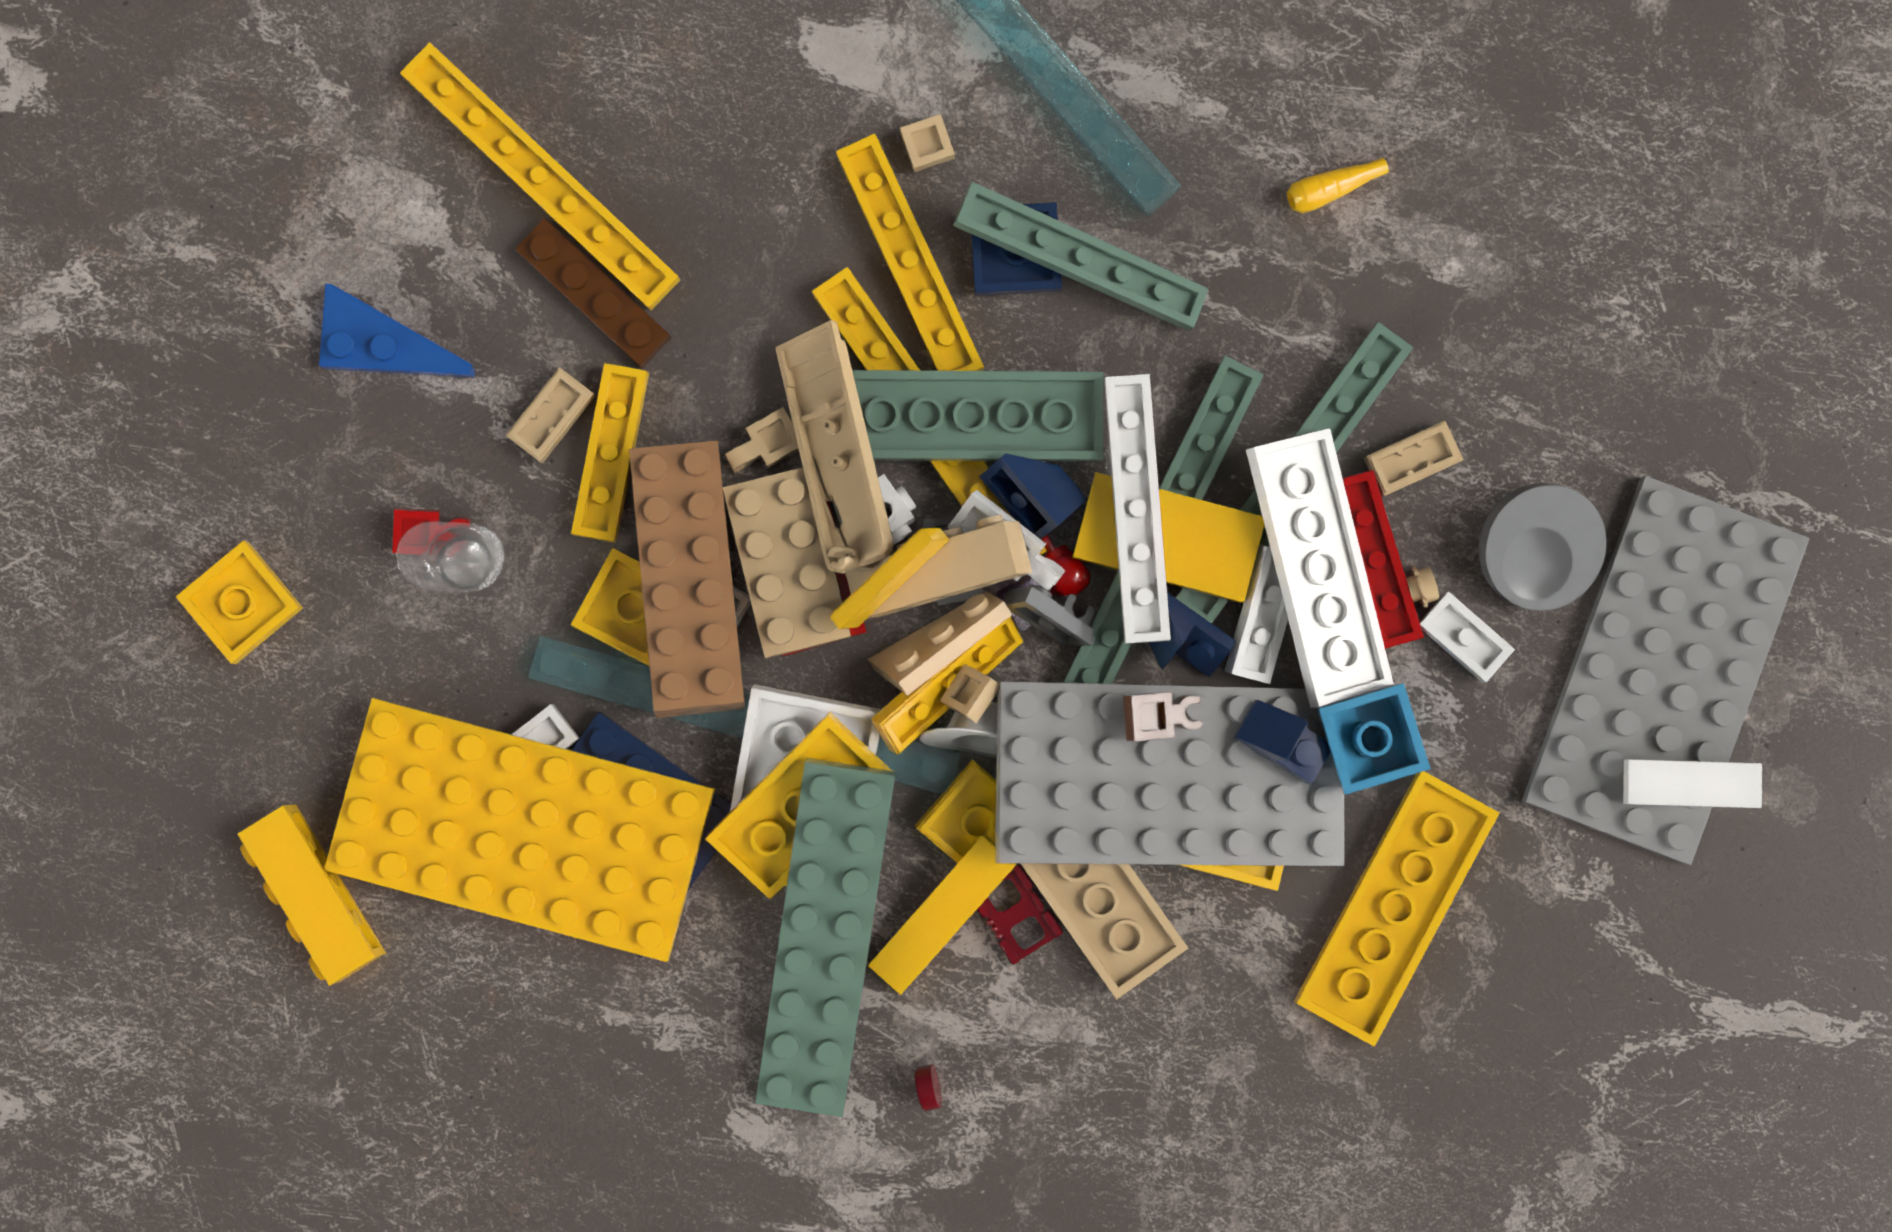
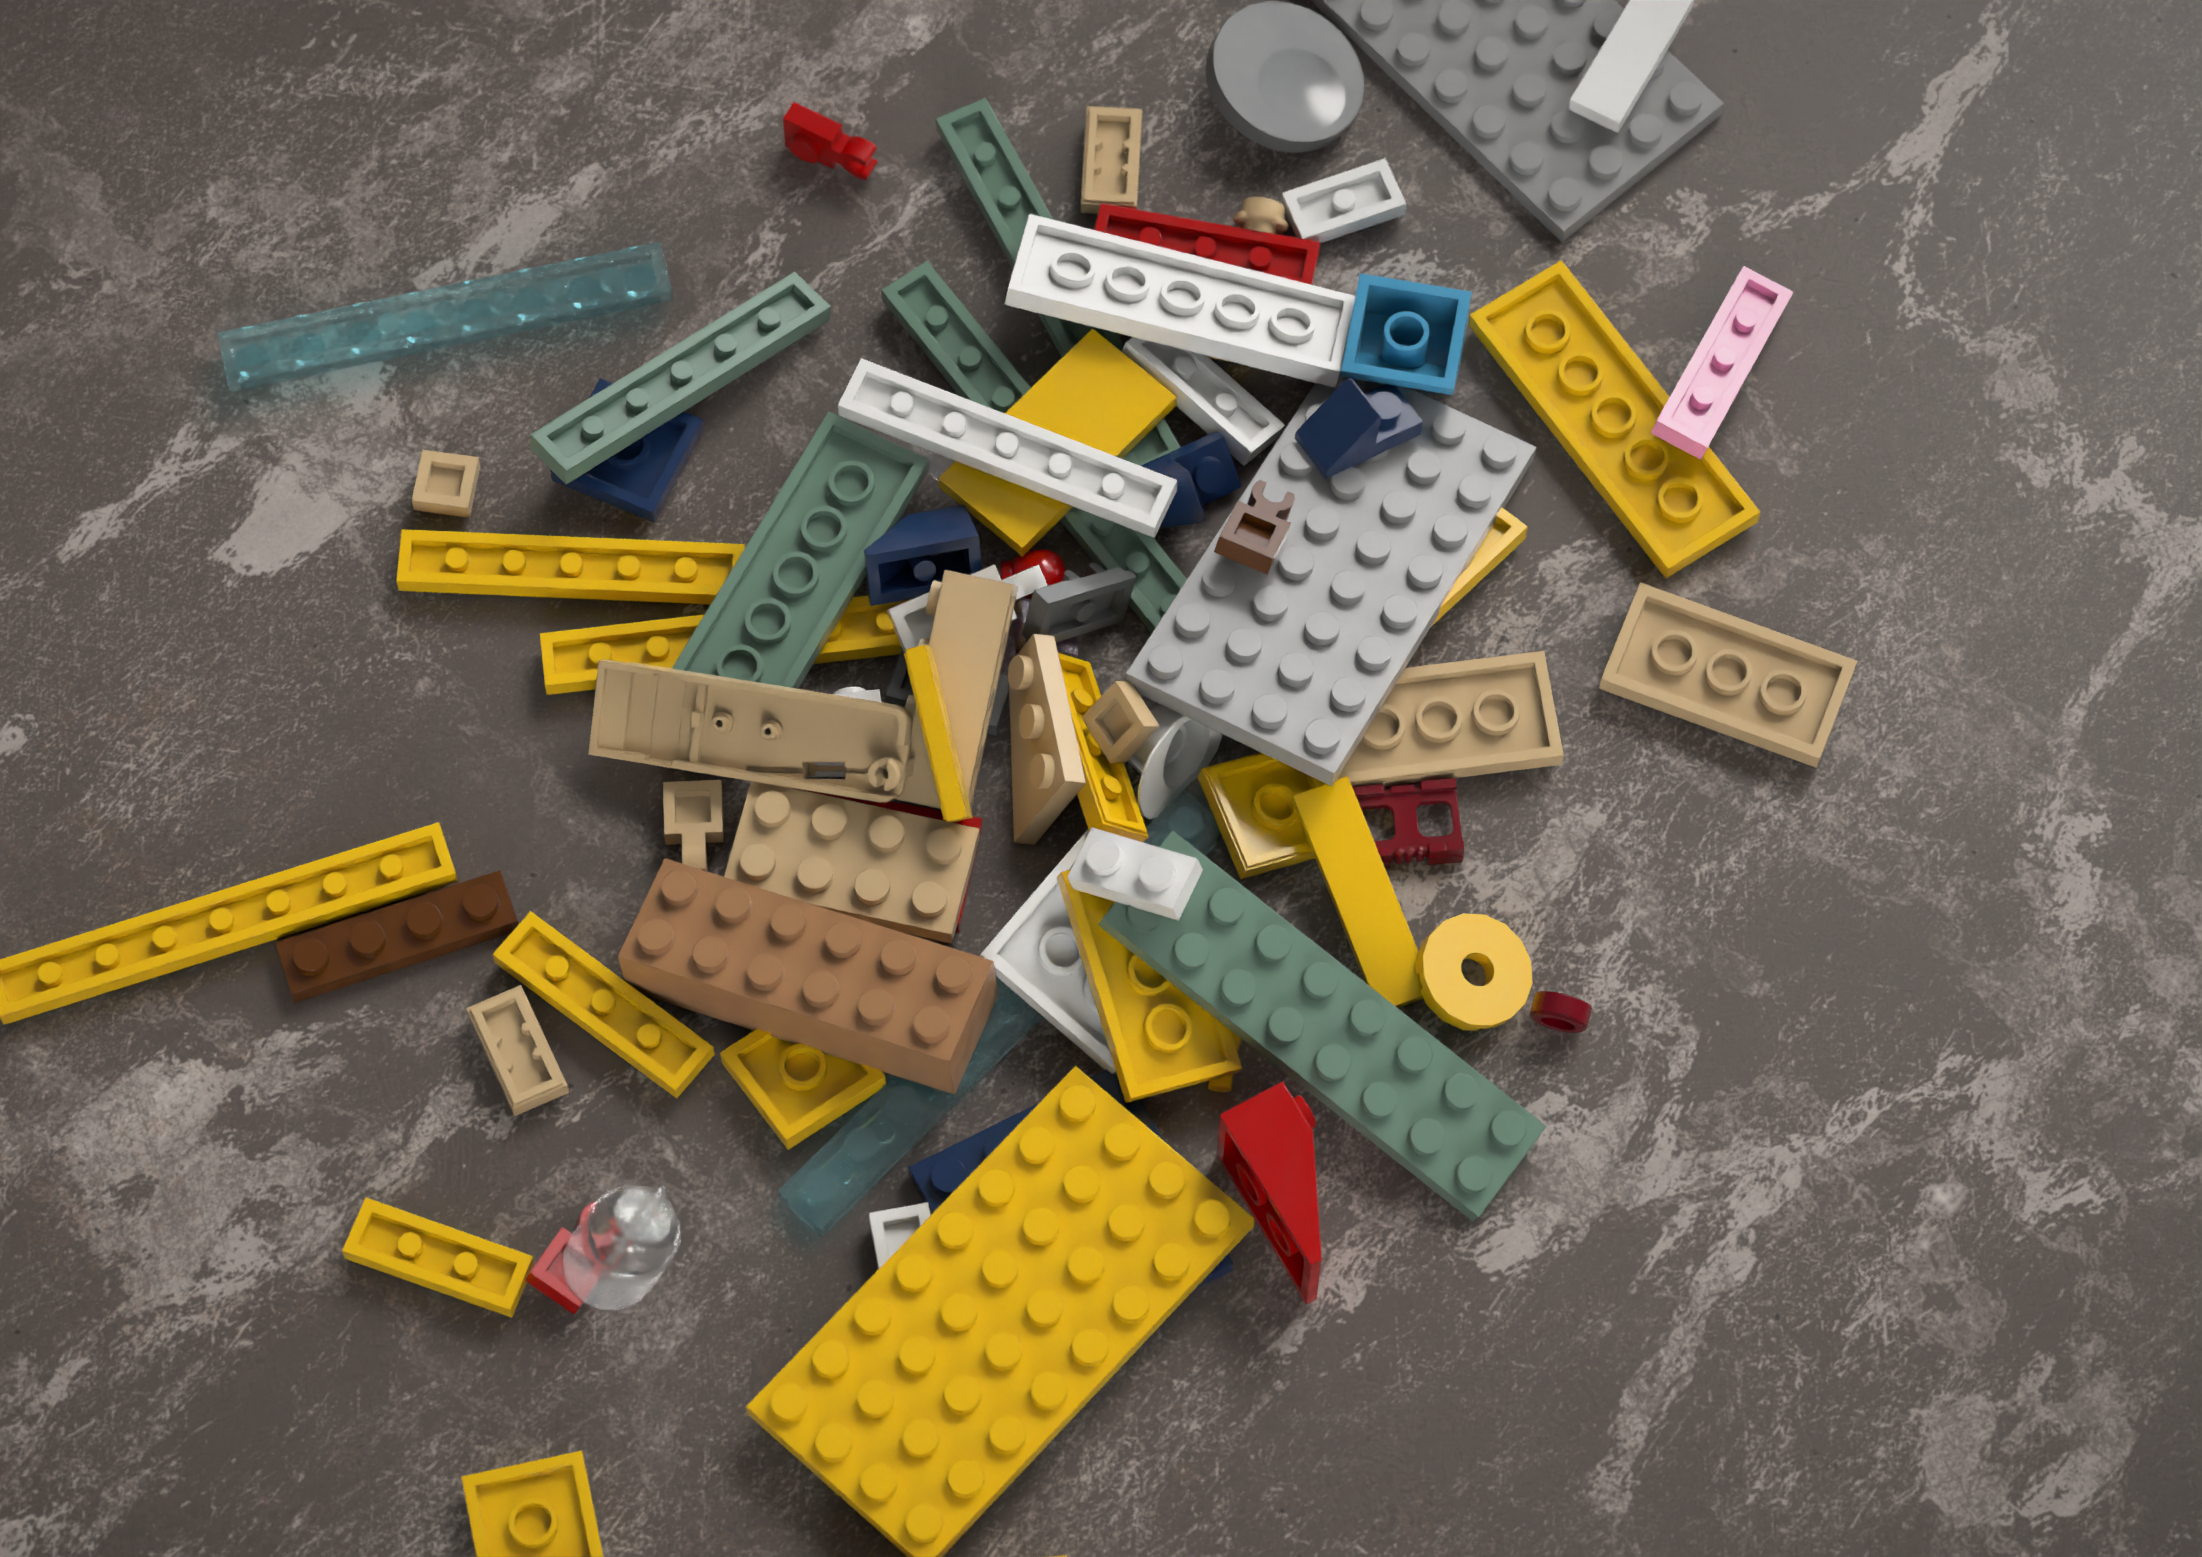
camera: 65 degrees left, 20 degrees down
(367, 340) = (301, 1218): blue wing -> none
(384, 443) = (438, 1257): none -> yellow plate
(708, 960) = (1271, 1161): none -> red slope
(844, 769) = (1135, 873): none -> white plate
(931, 1039) = (1496, 950): none -> yellow tile
(1239, 1082) = (1728, 675): none -> tan plate
(1319, 248) = (823, 141): none -> red plate
(1328, 186) = (750, 103): yellow piece -> none
(1476, 966) = (1721, 363): none -> bright pink plate

